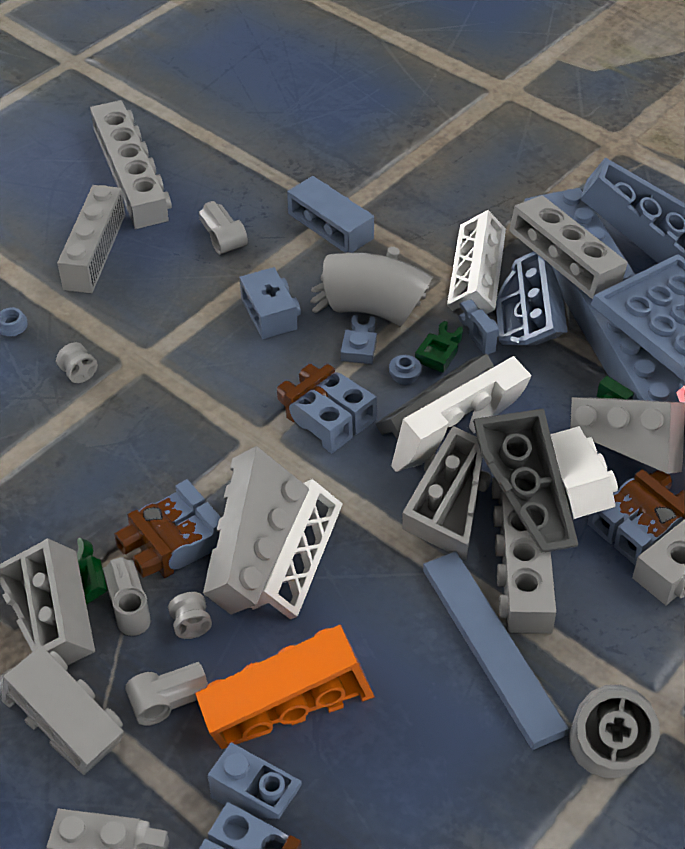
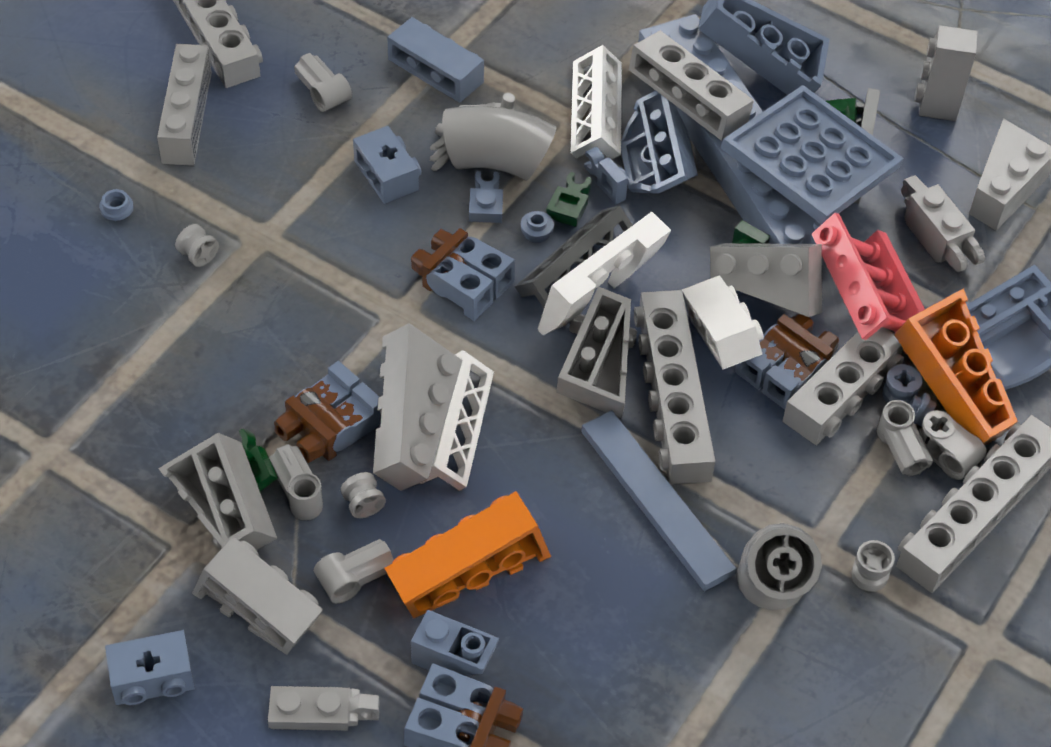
camera: 10 degrees left, 5 degrees up
(527, 470) = (674, 324): dark grey wedge -> none

